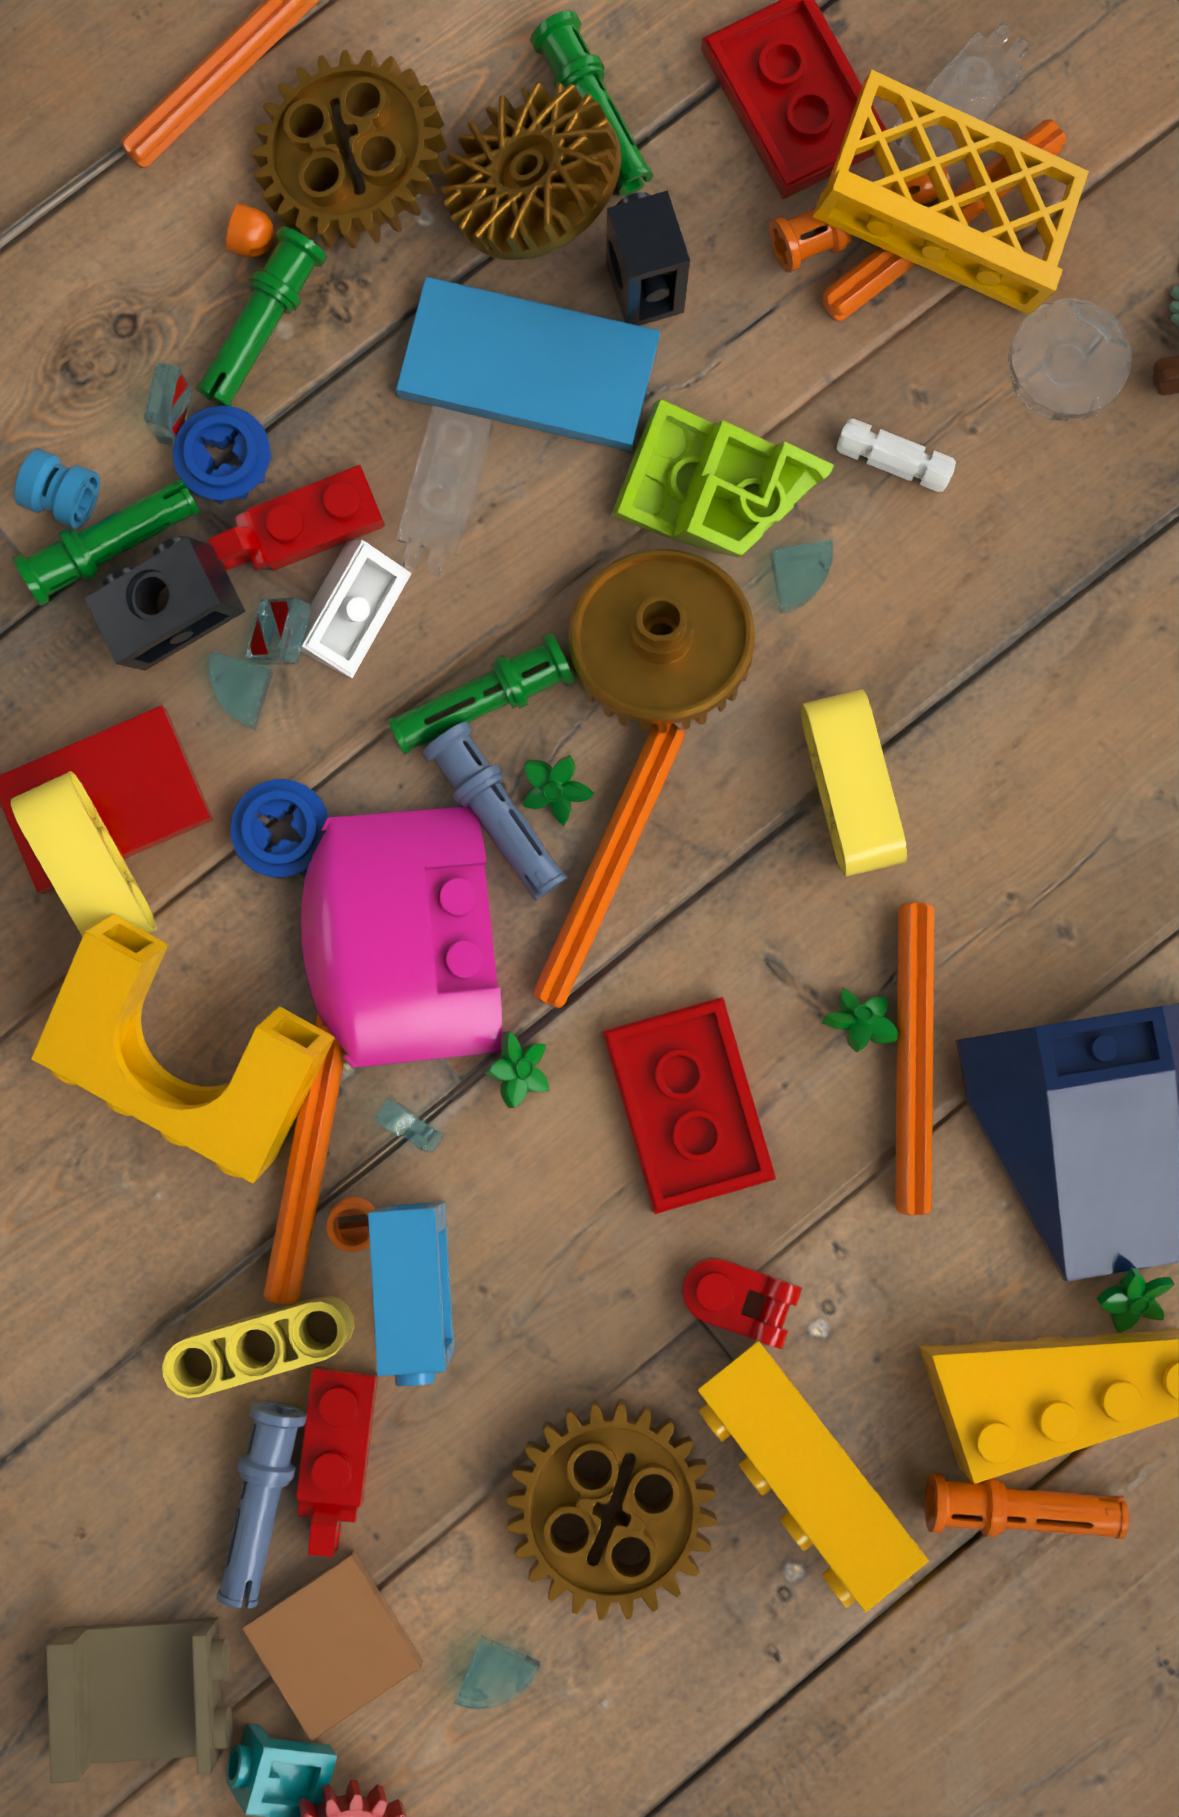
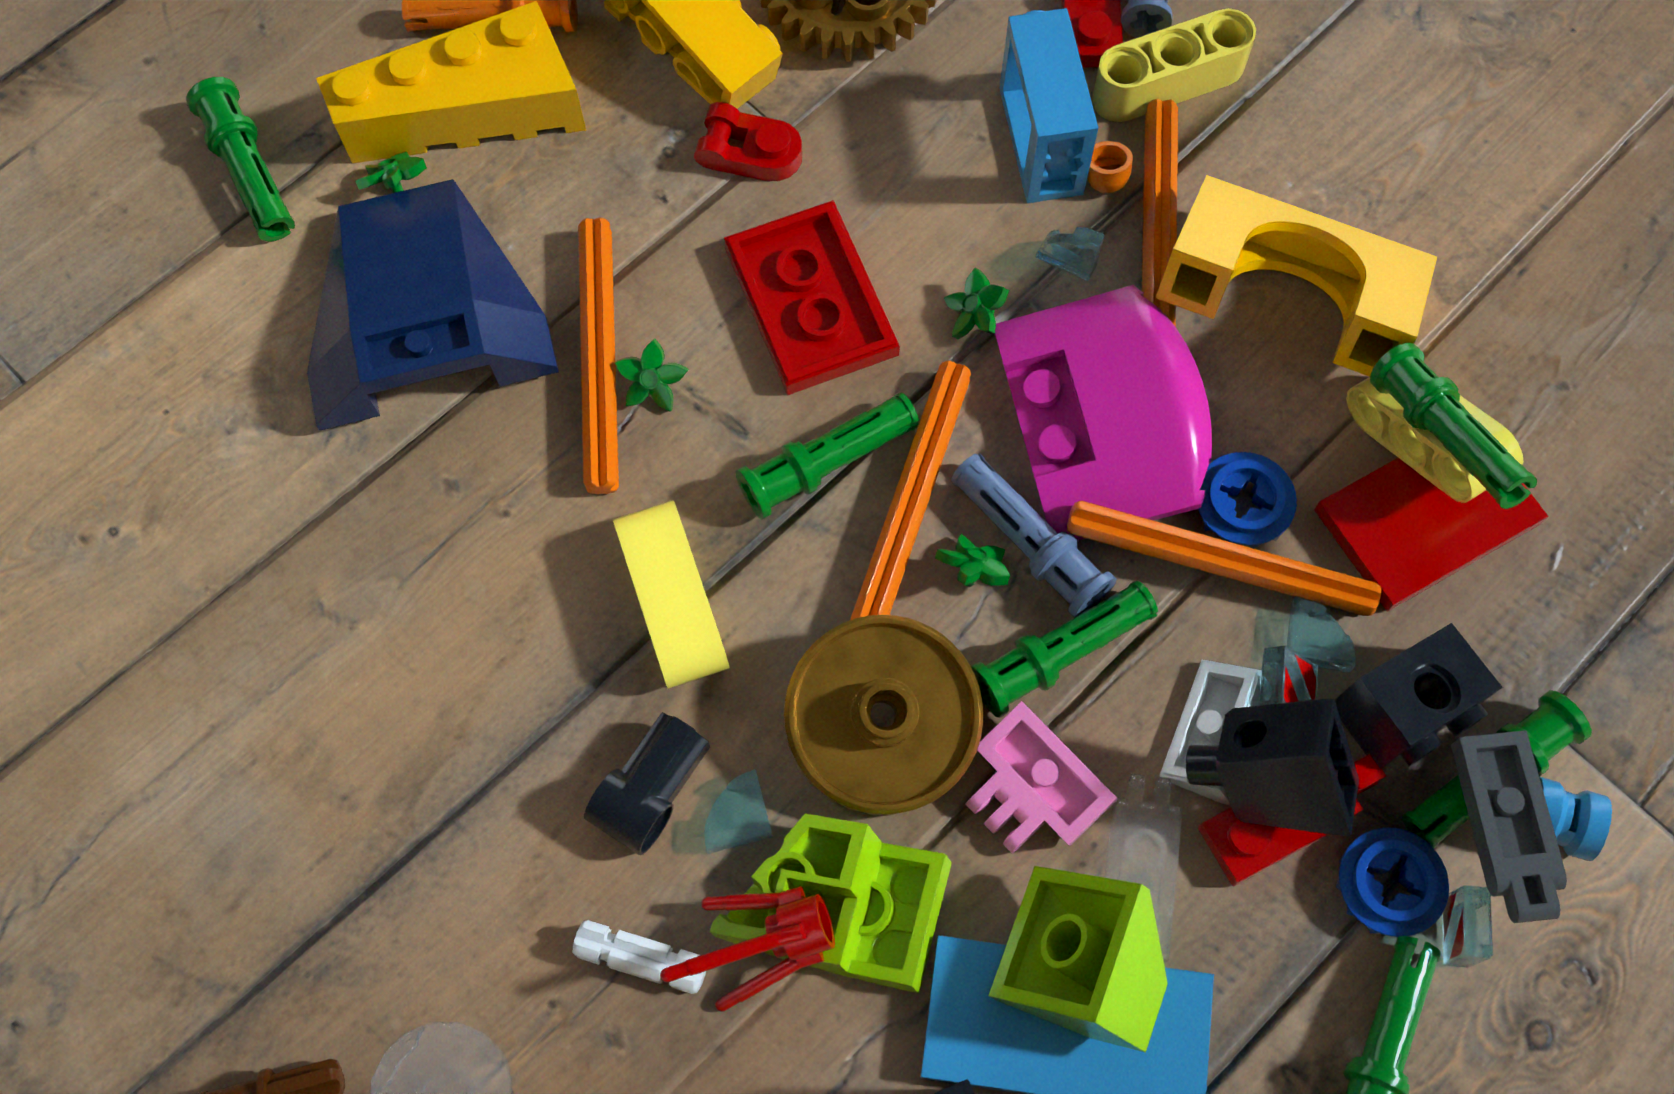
camera: 175 degrees right, 15 degrees down
(85, 857) = (1434, 405): none -> green pin
(111, 471) = (1511, 823): none -> dark grey hinge
(291, 523) = (1282, 766): none -> black torso
(317, 764) = (1224, 558): none -> orange axle
(513, 394) = (1085, 957): none -> lime slope
(524, 570) = (1037, 782): none -> bright pink hinge
(714, 904) = (803, 465): none -> green pin
(762, 440) = (797, 930): none -> red plant
(889, 591) = (638, 799): none -> black piece

